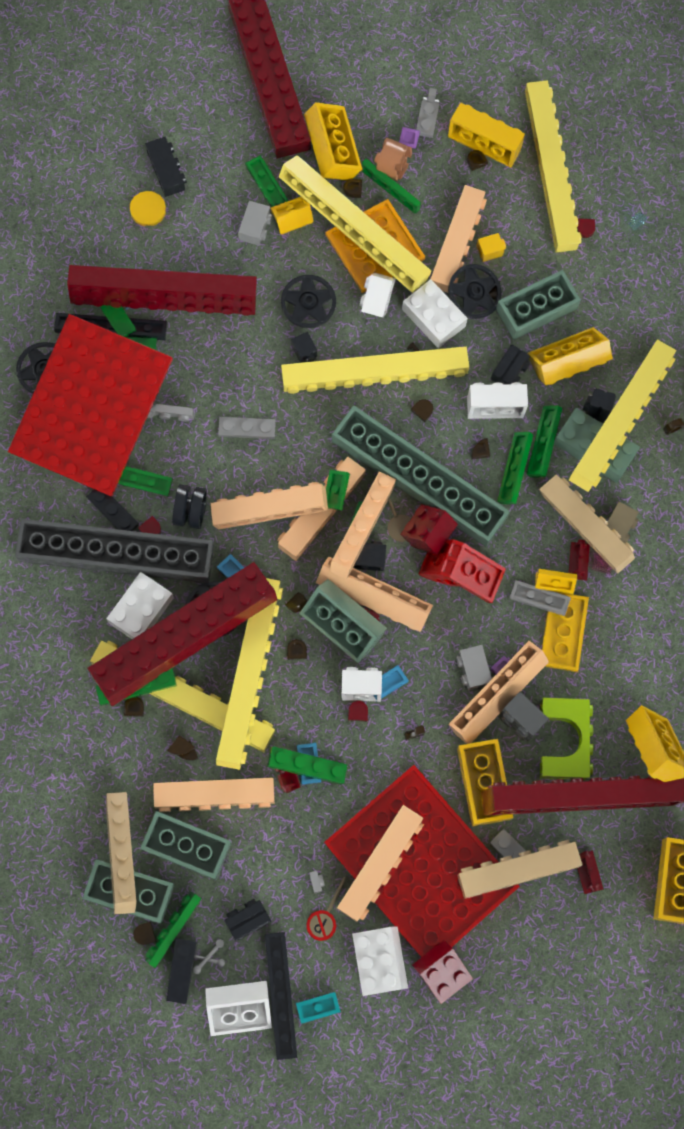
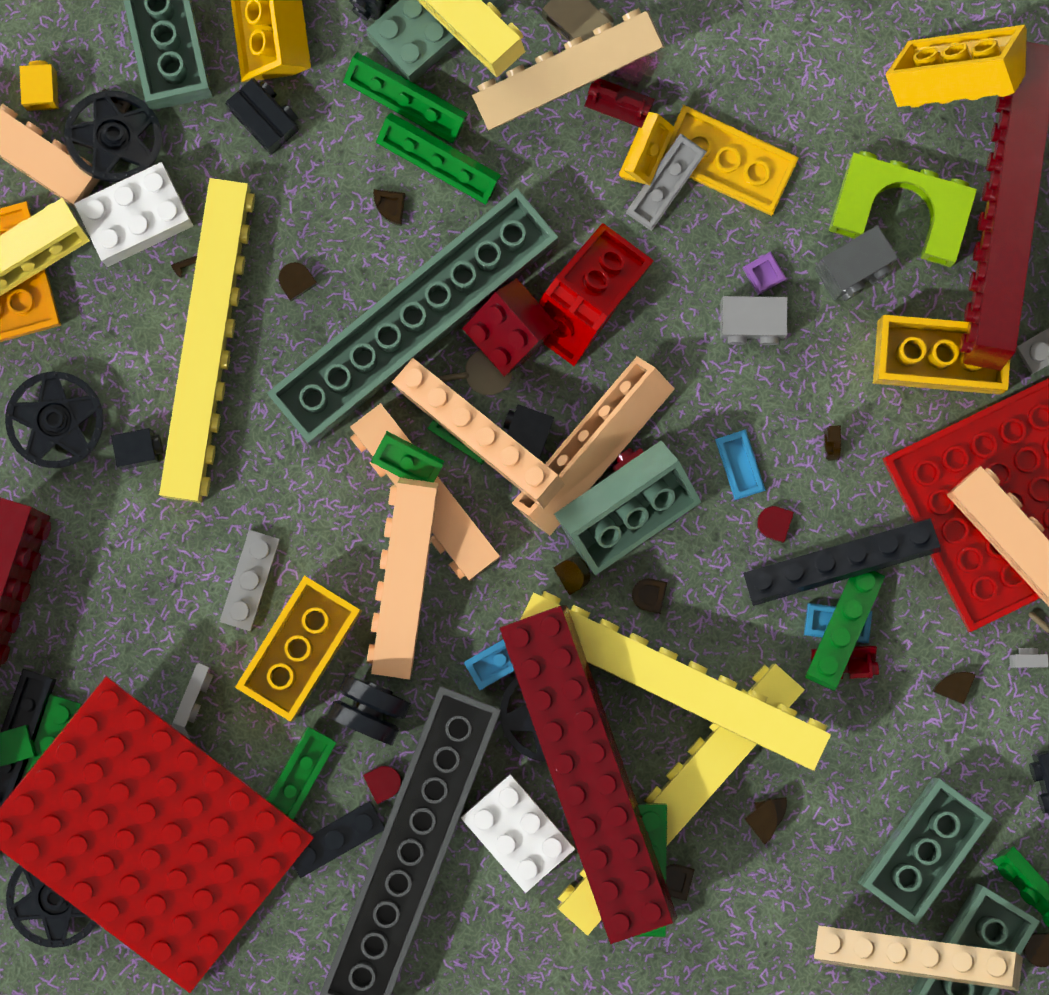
camera: 75 degrees left, 10 degrees up
(214, 461) = (298, 649): none -> yellow brick
(214, 793) = (851, 786): light nougat brick -> none
(289, 843) = (955, 686): none -> dark brown tile
(345, 755) = (842, 562): none -> black plate
(361, 684) = (740, 505): white brick -> none
(377, 295) = (74, 295): white brick -> none
(497, 400) = (318, 154): white brick -> none
(498, 692) = (806, 291): light nougat brick -> none

